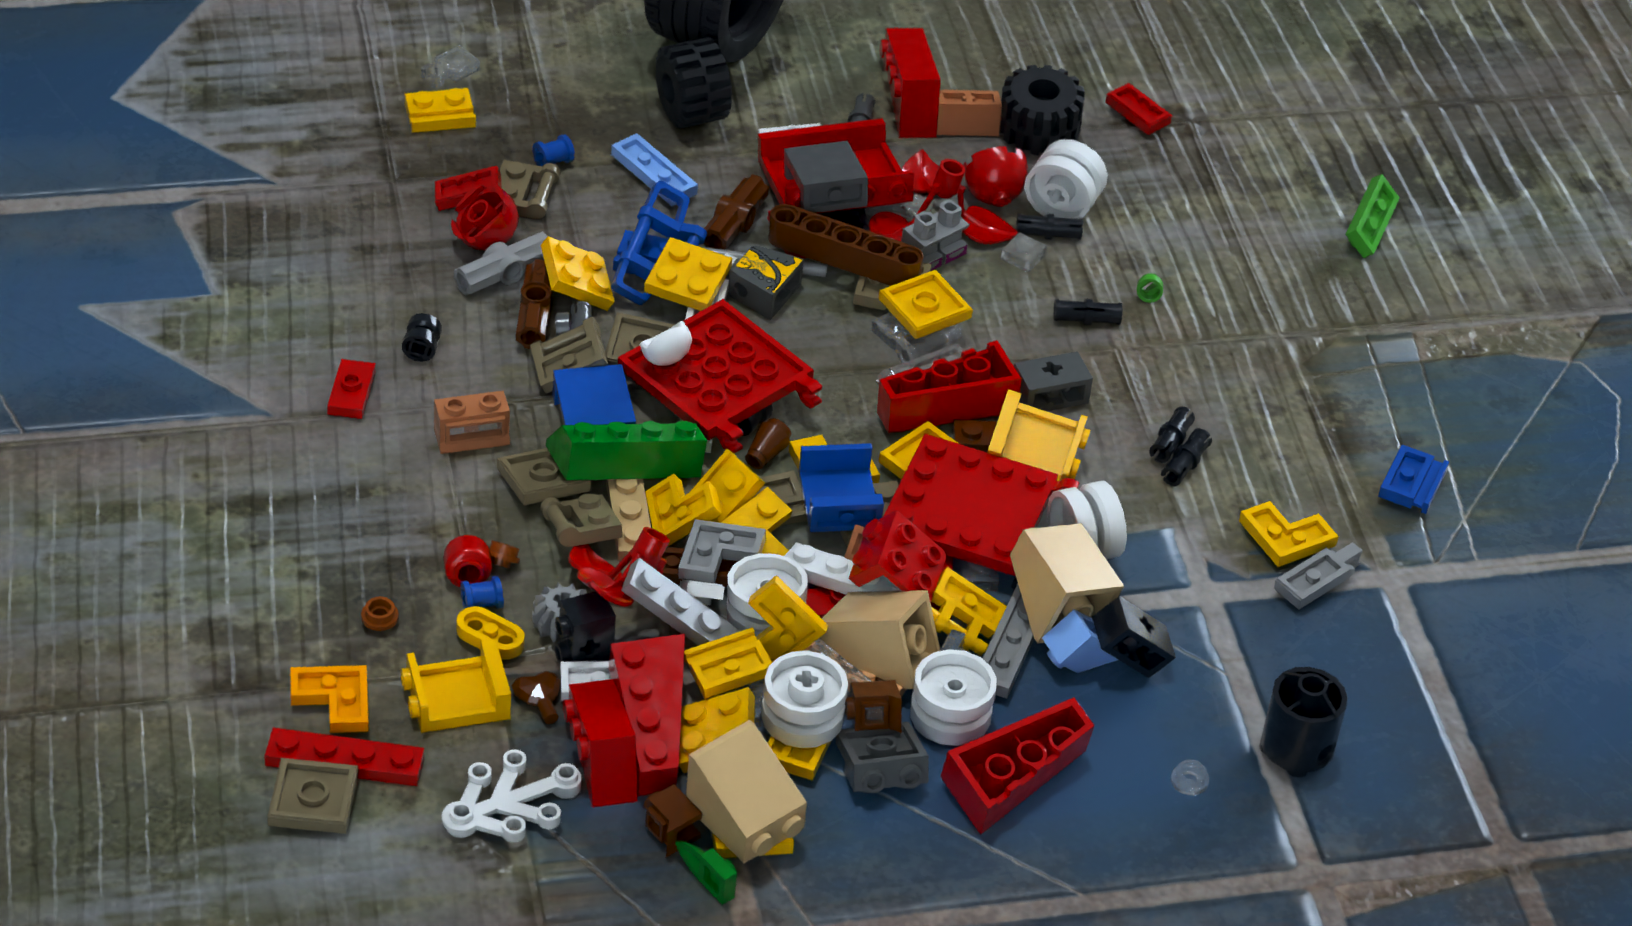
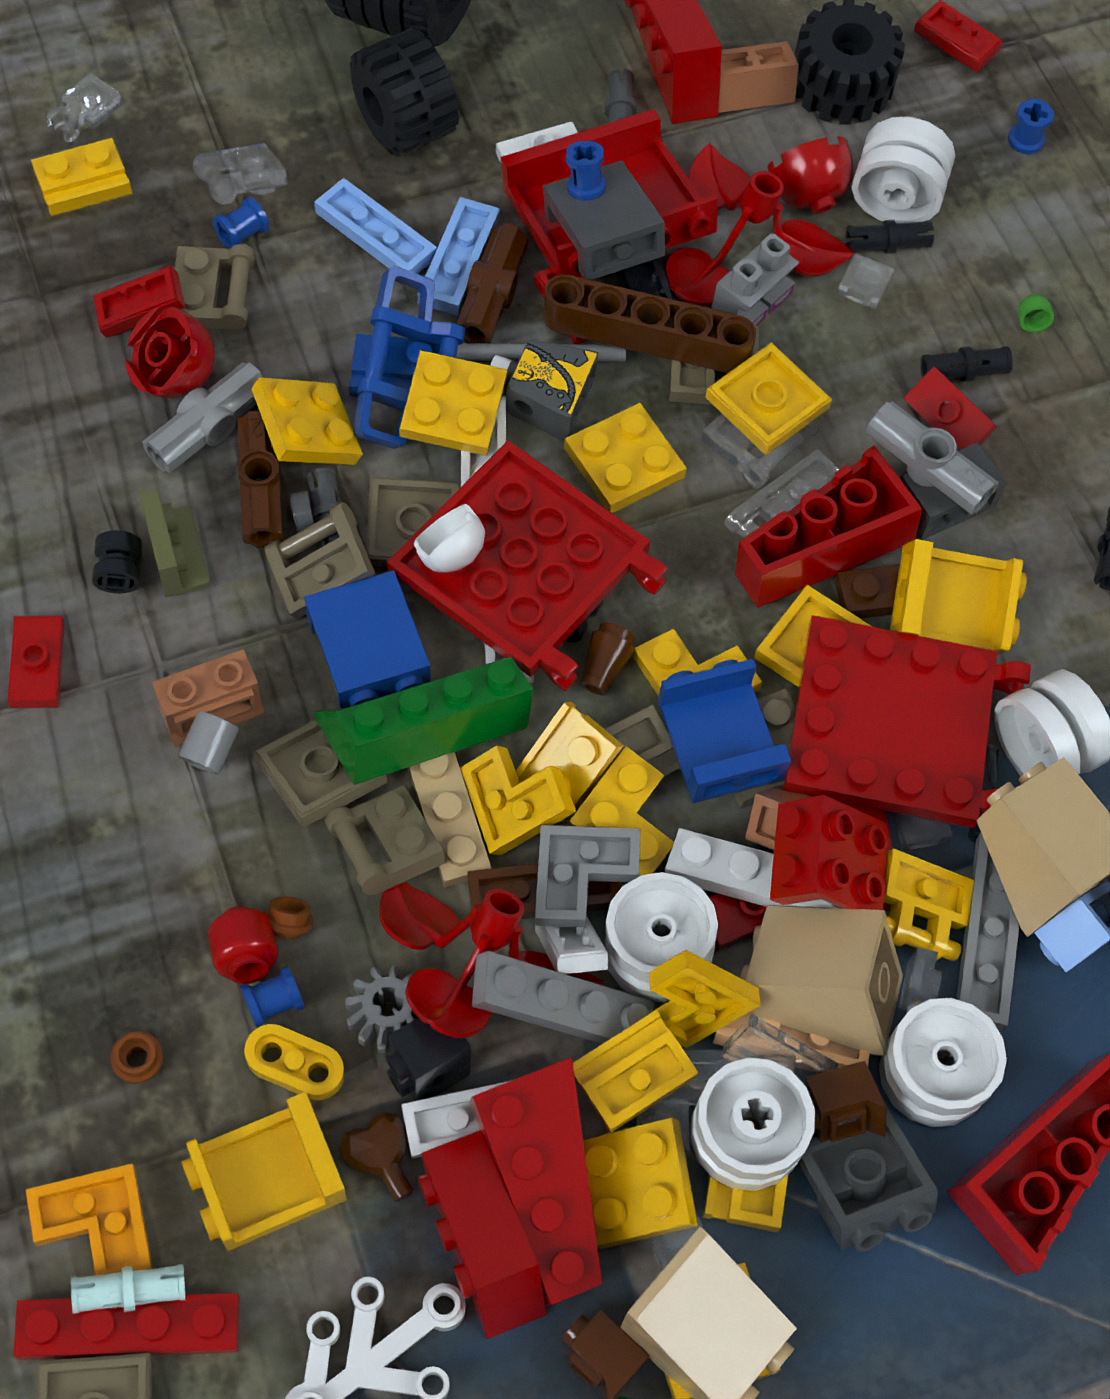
camera: 10 degrees left, 20 degrees up
(351, 725) = (127, 1288): none -> light aqua pin
(464, 332) = (174, 545): none -> olive bracket
(467, 440) = (208, 742): none -> light grey piece
(571, 118) = (251, 169): none -> clear plate
(718, 182) = (458, 250): none -> light blue plate
(812, 331) = (624, 458): none -> yellow plate
(816, 138) = (585, 167): none -> blue bush
(1036, 349) = (948, 471): none -> light grey piece
(1064, 334) = (949, 409): none -> red plate
(1180, 165) = (1032, 118): none -> blue bush

